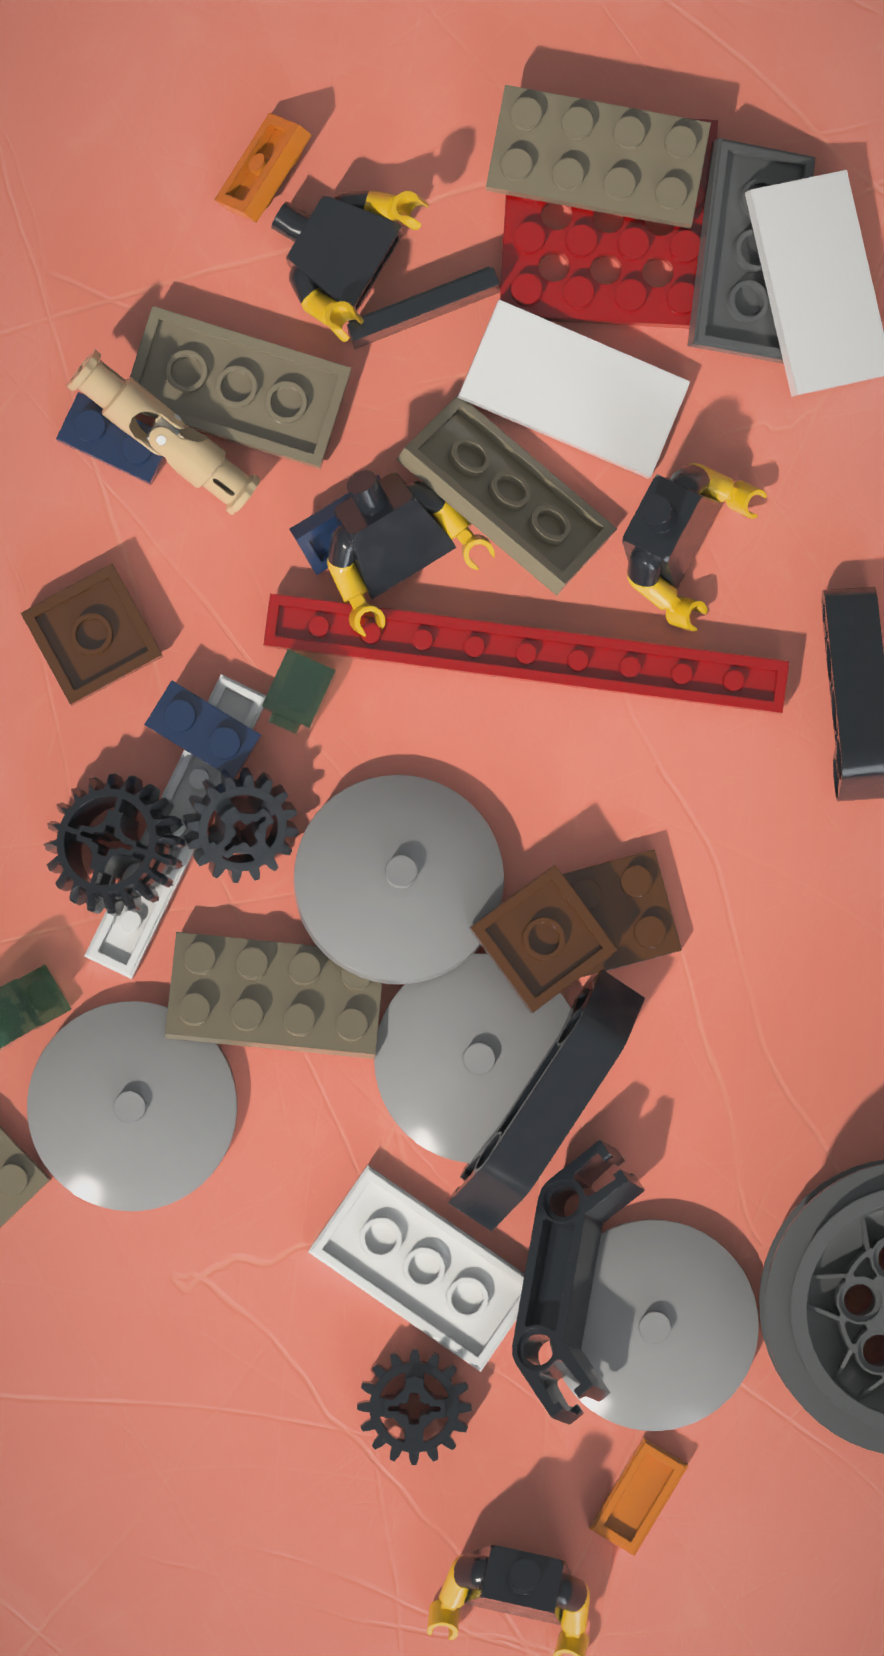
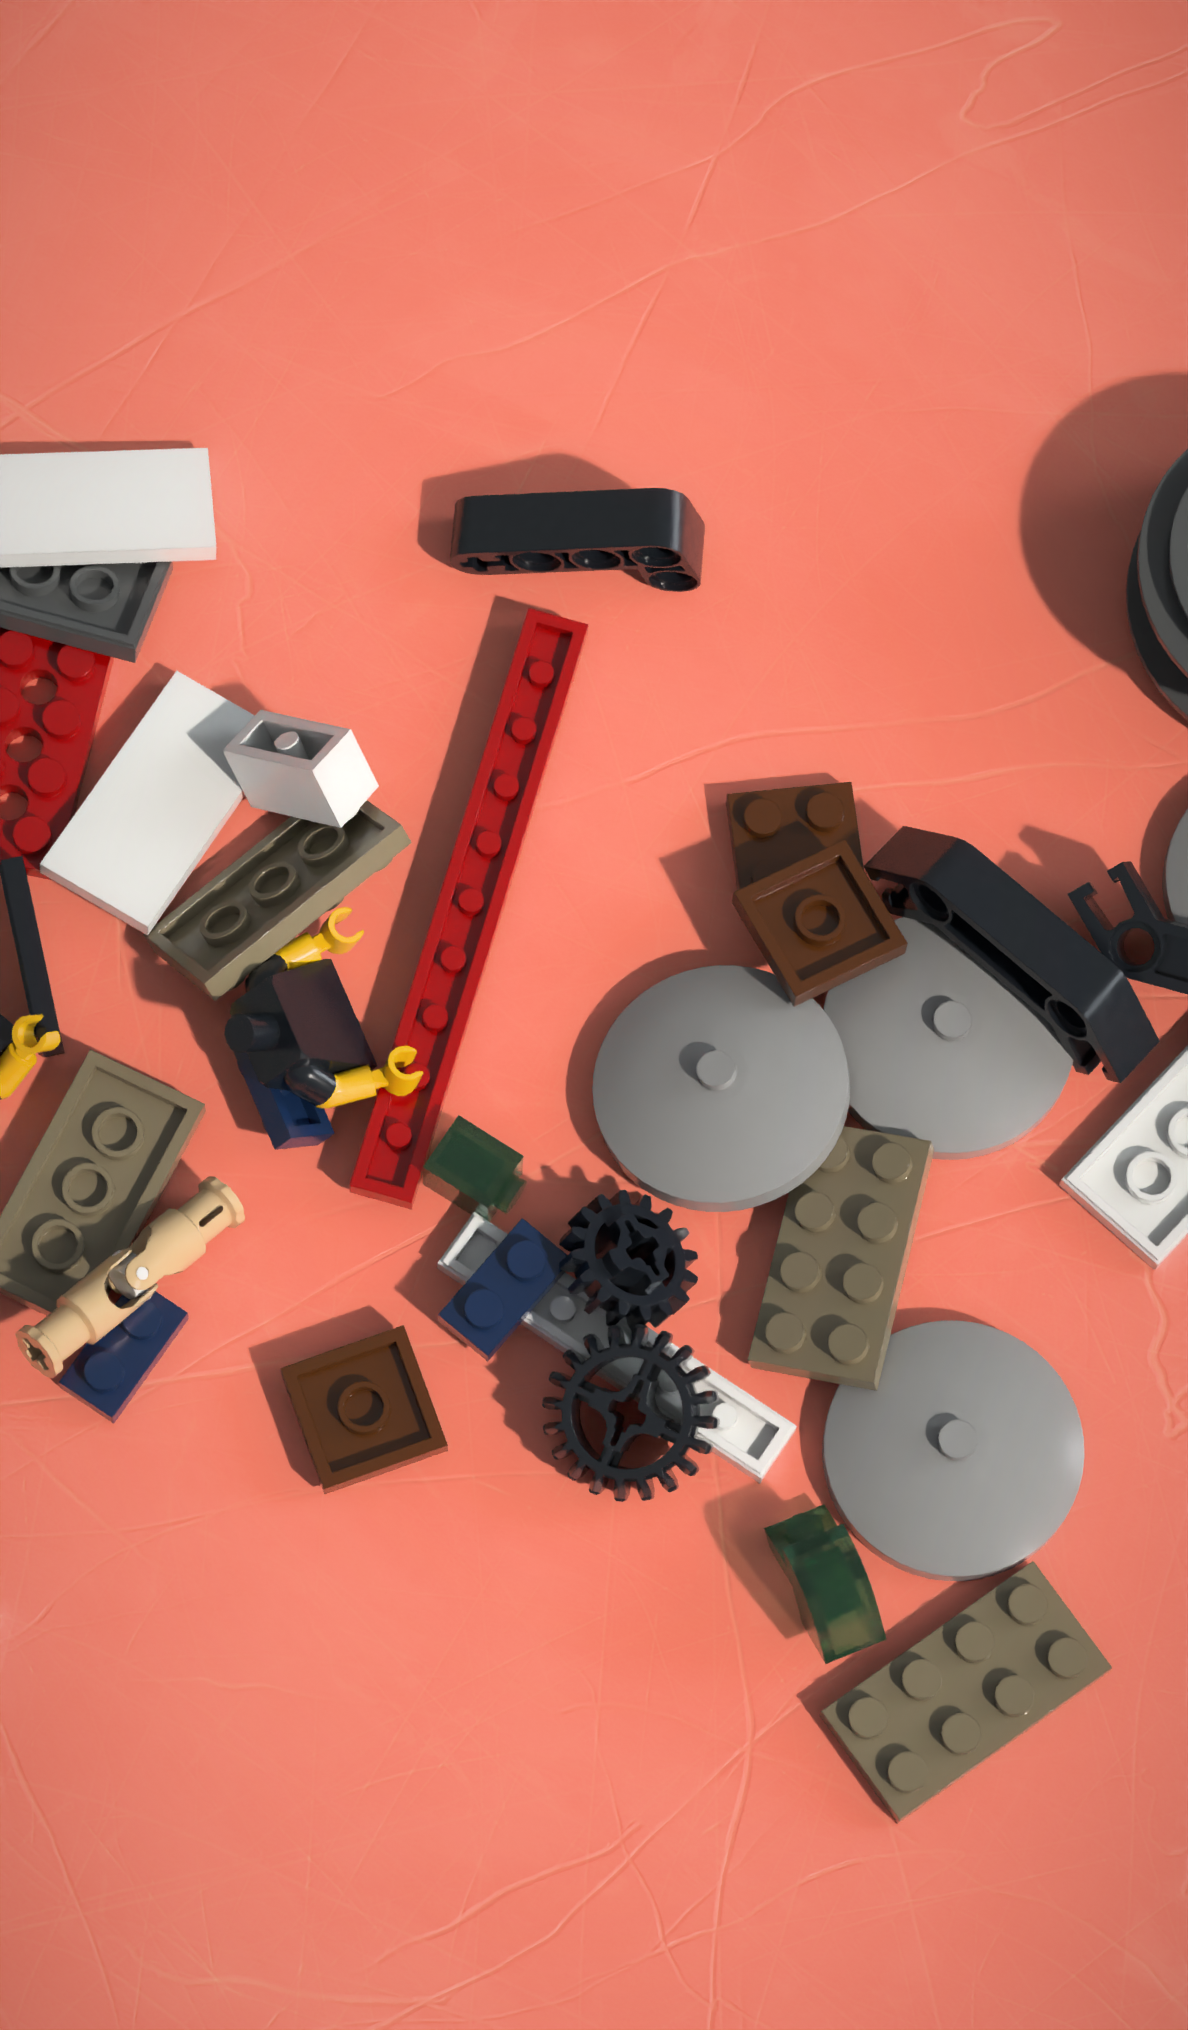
camera: 90 degrees left, 15 degrees down
(608, 495) = (301, 768): none -> white brick
(672, 528) = (337, 697): black torso -> none

